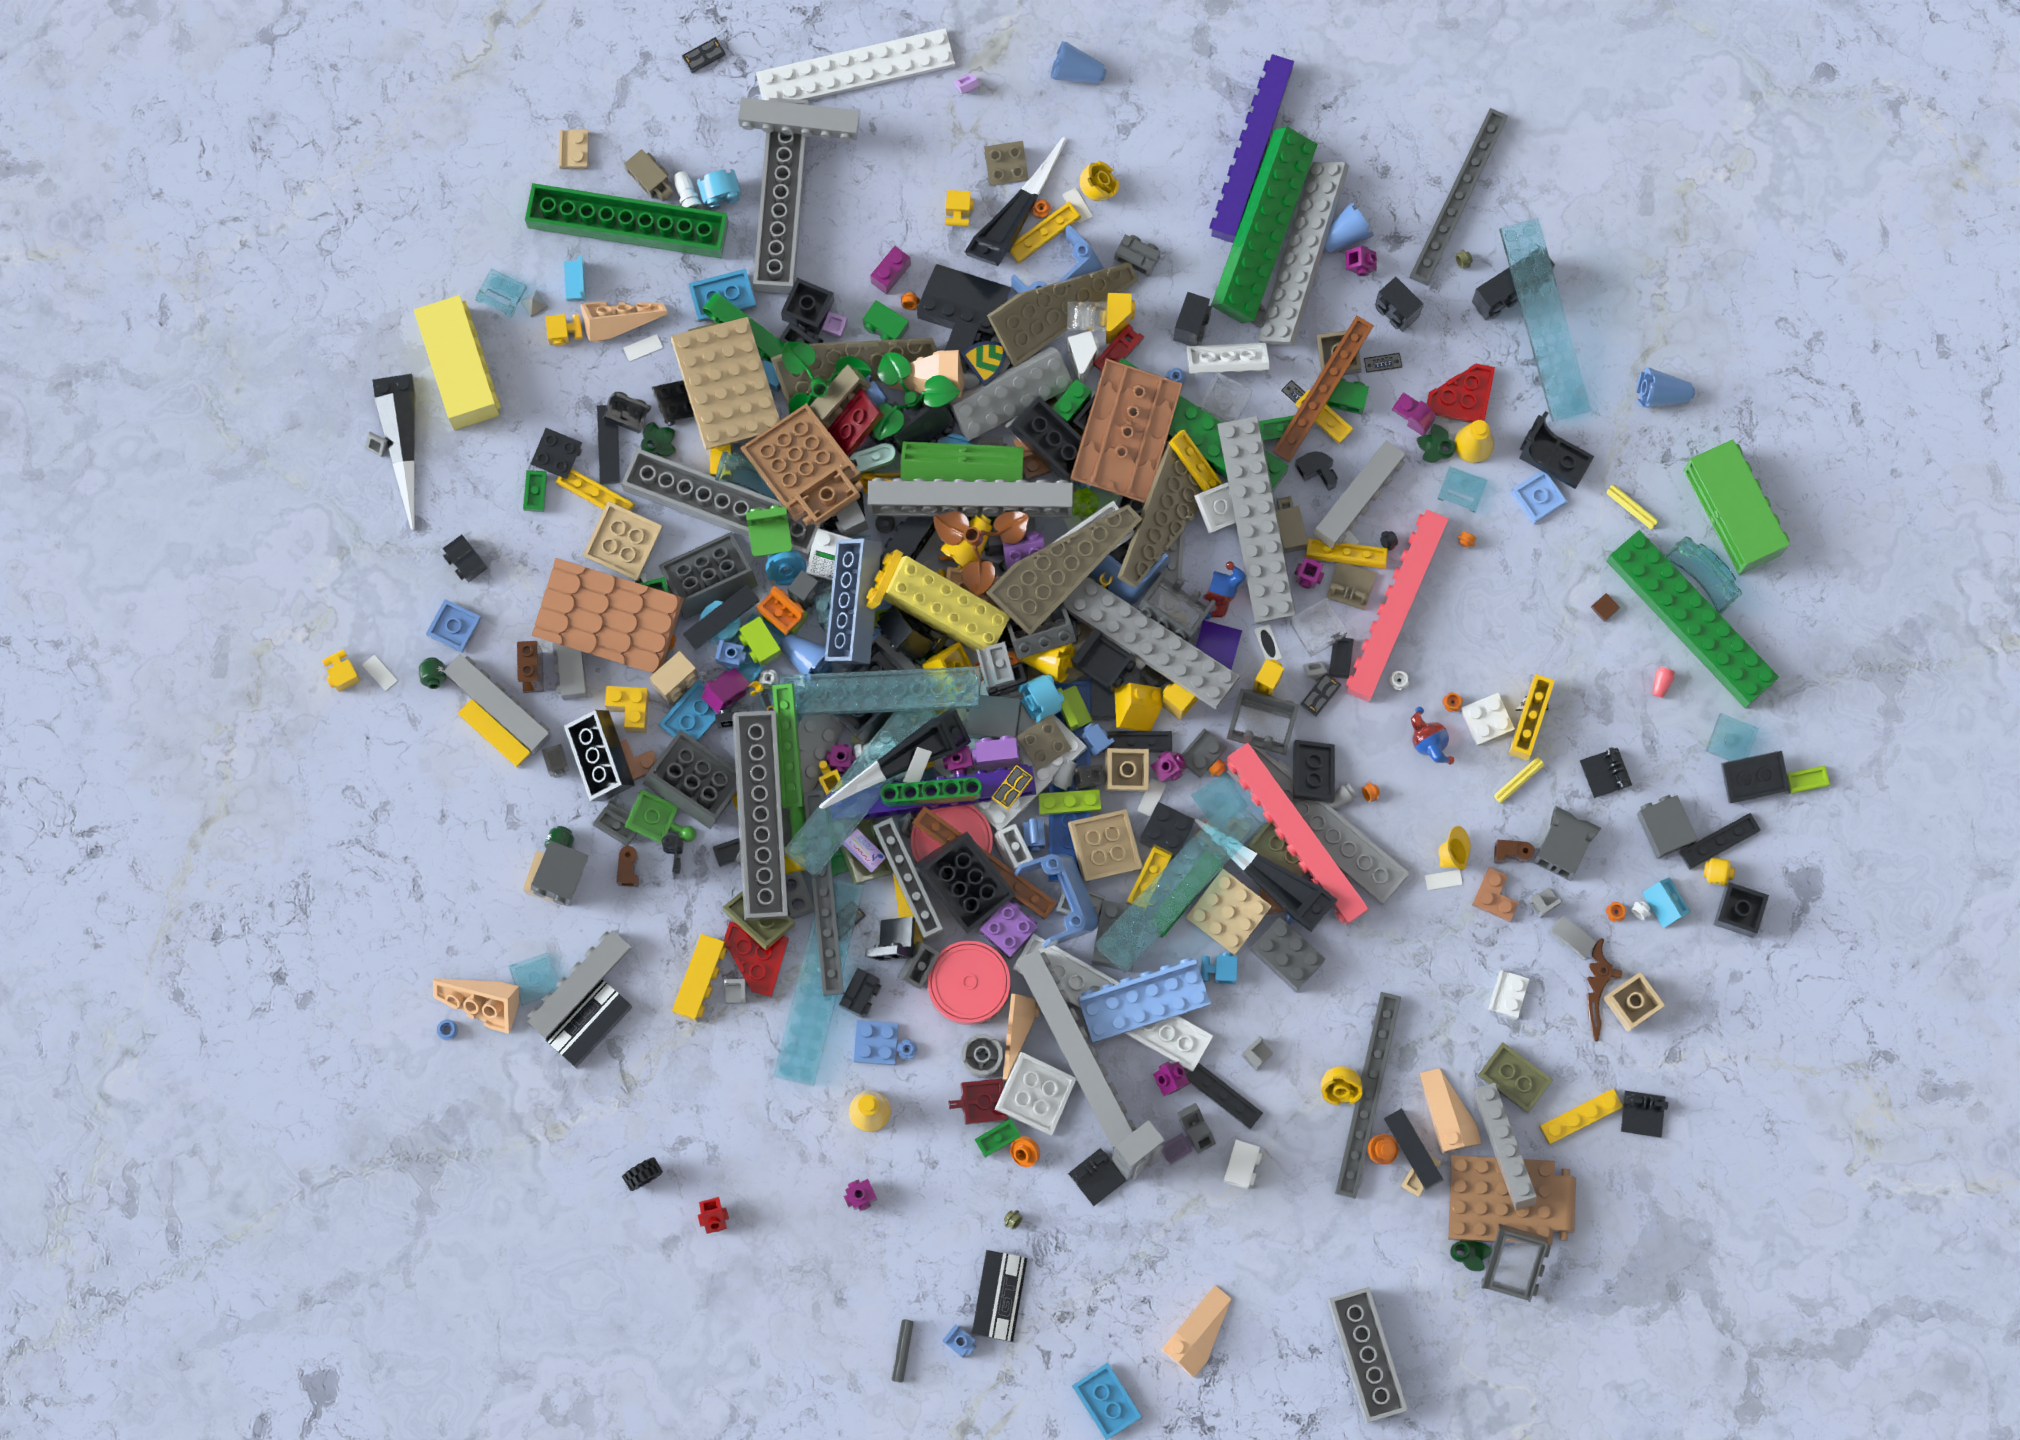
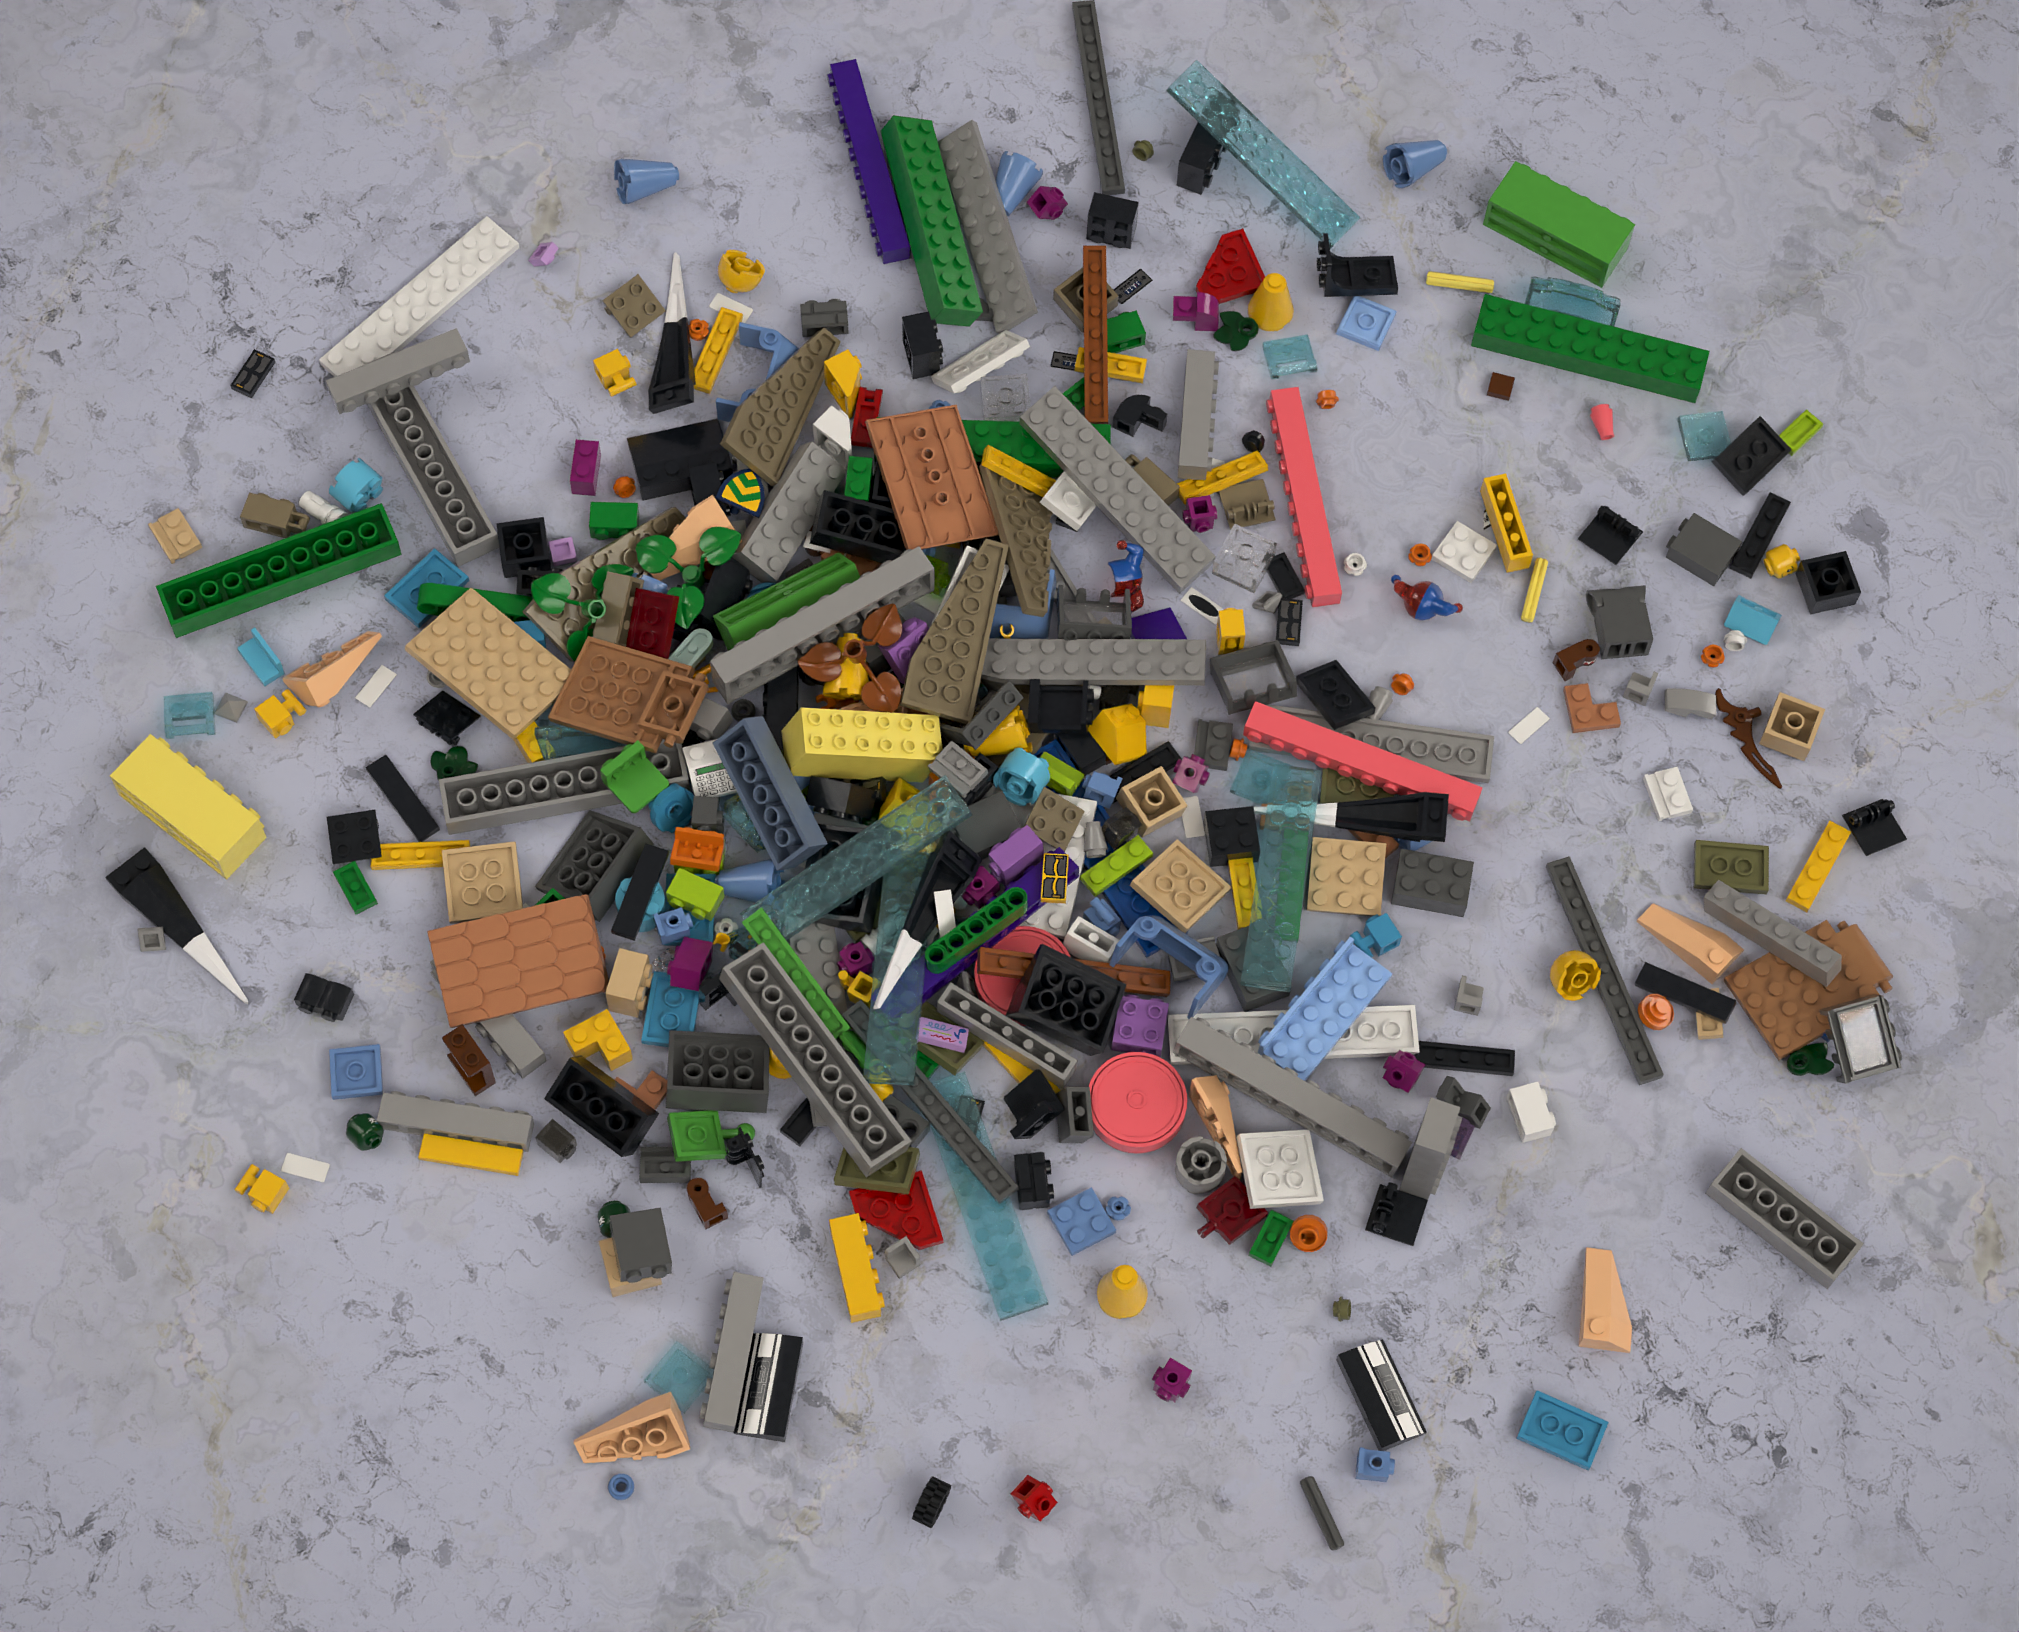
camera: 35 degrees left, 10 degrees down
(626, 411) = (402, 753): black bracket -> none
(883, 579) = (789, 748): yellow plate -> none
(1087, 316) = (817, 395): clear brick -> none
(1455, 850) = (1521, 689): yellow piece -> none

